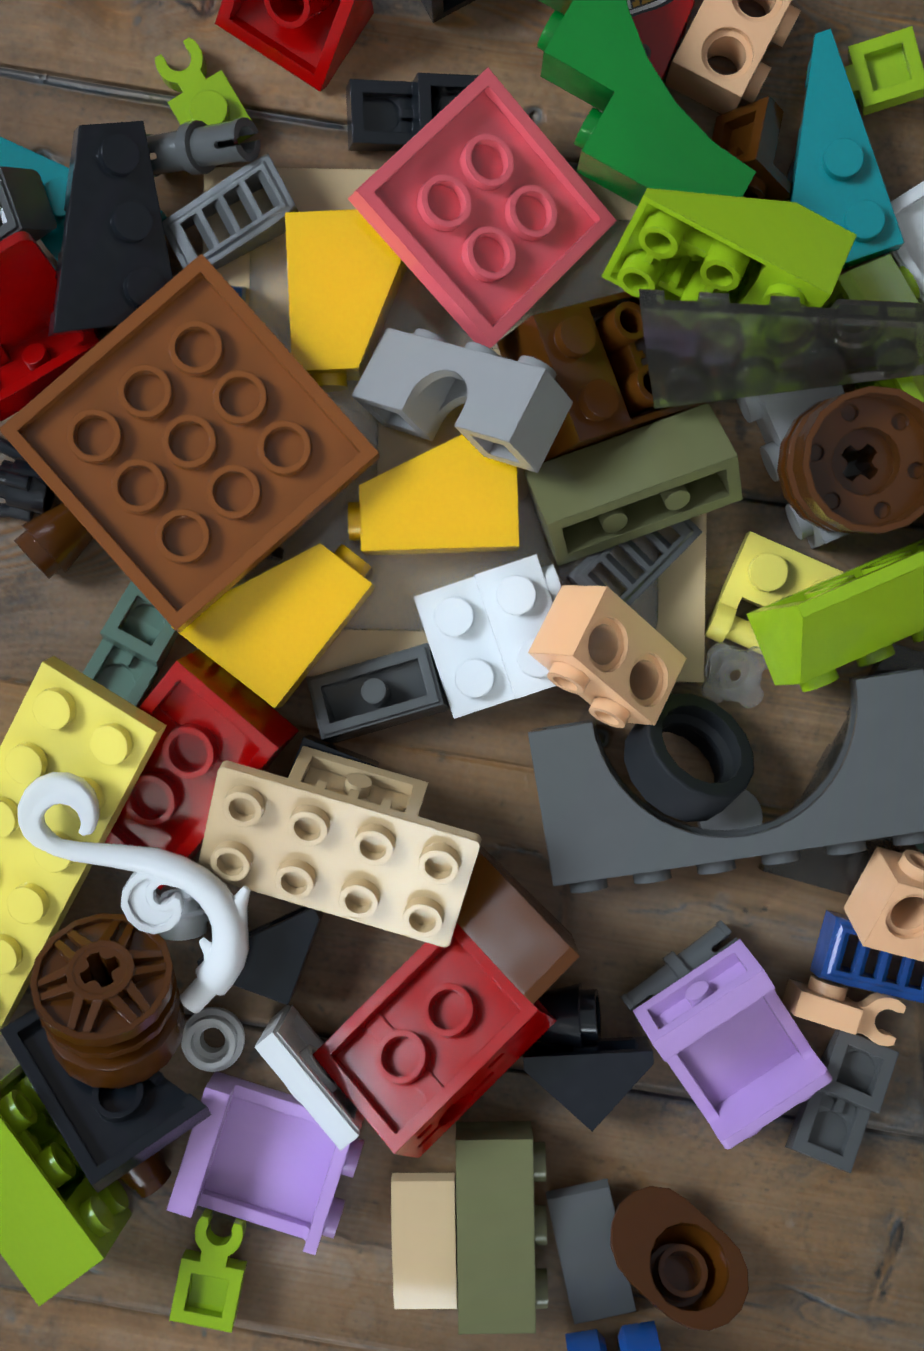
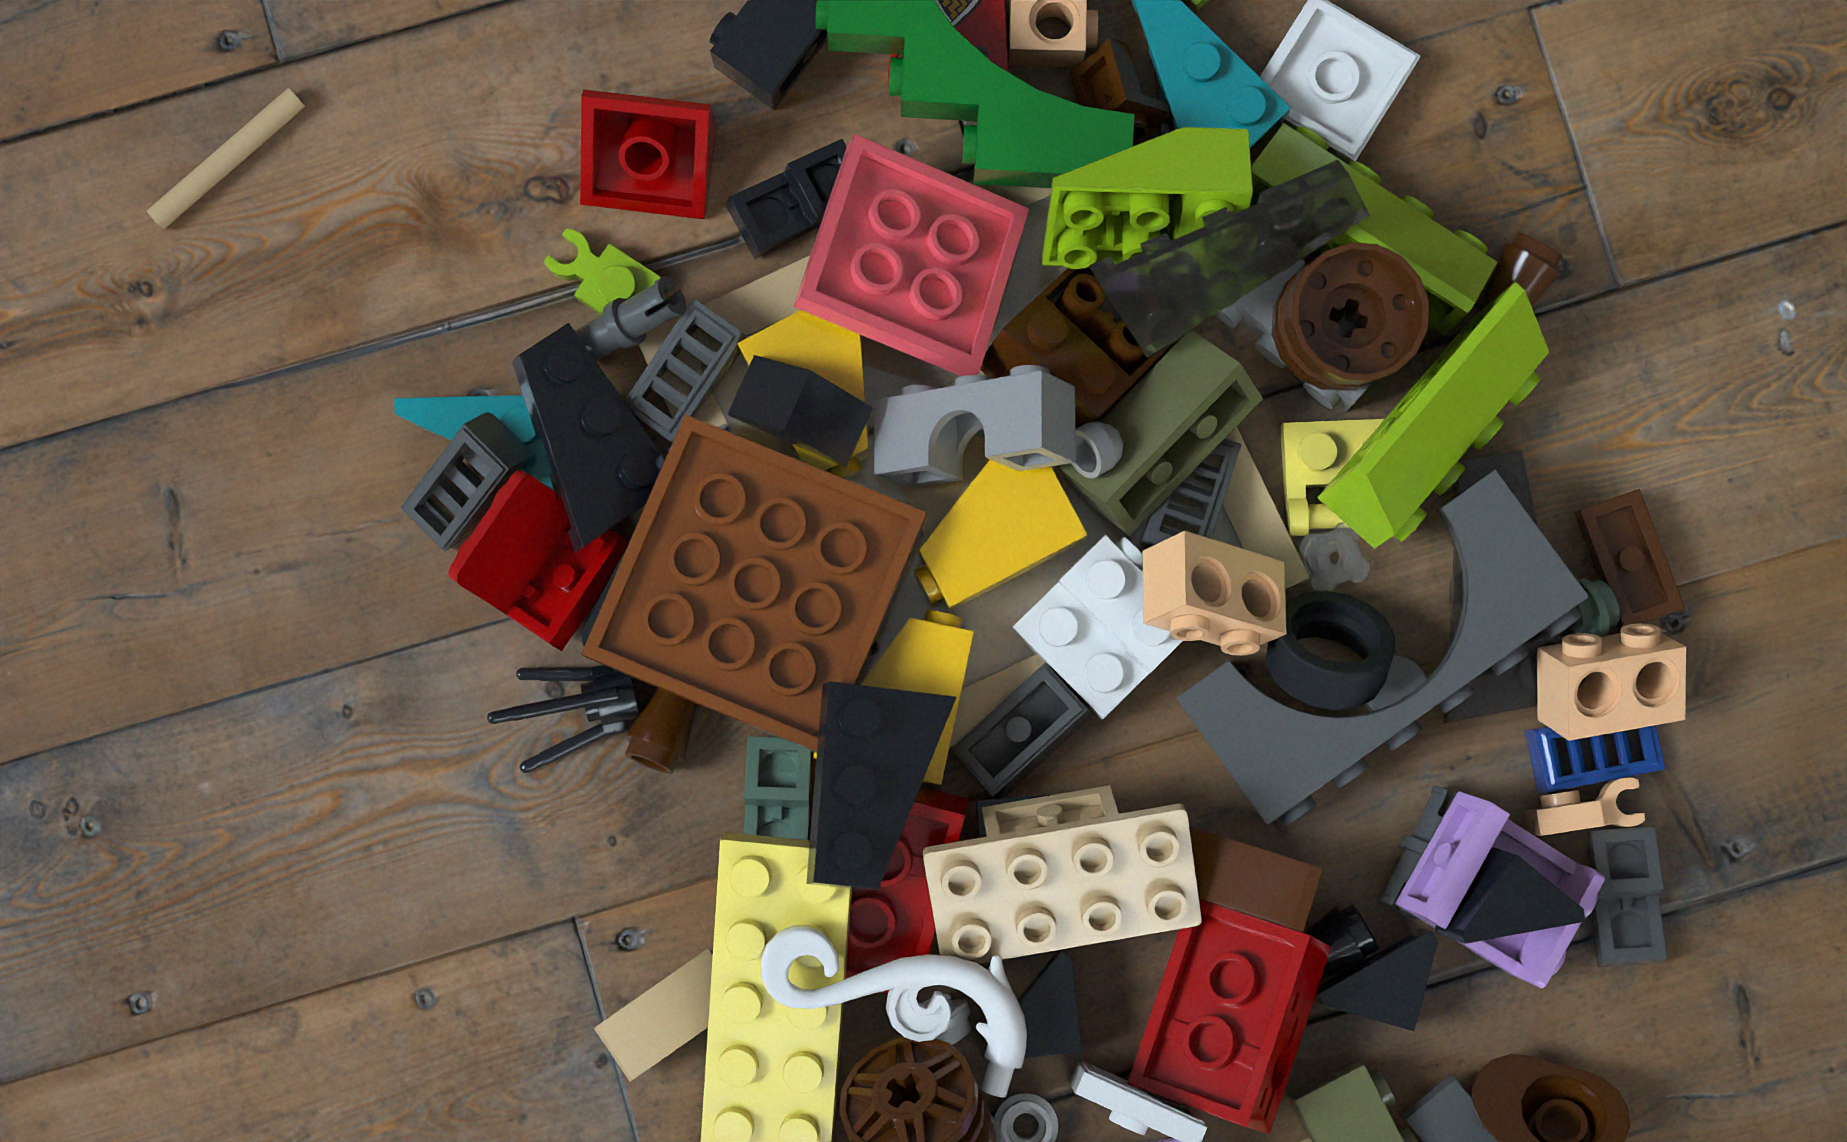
camera: 25 degrees left, 5 degrees down
(202, 671) = (867, 778): none -> black wing
(312, 302) = (801, 409): none -> black slope
(565, 470) = (1096, 448): none -> light grey hinge
(734, 1065) = (1509, 900): none -> black slope

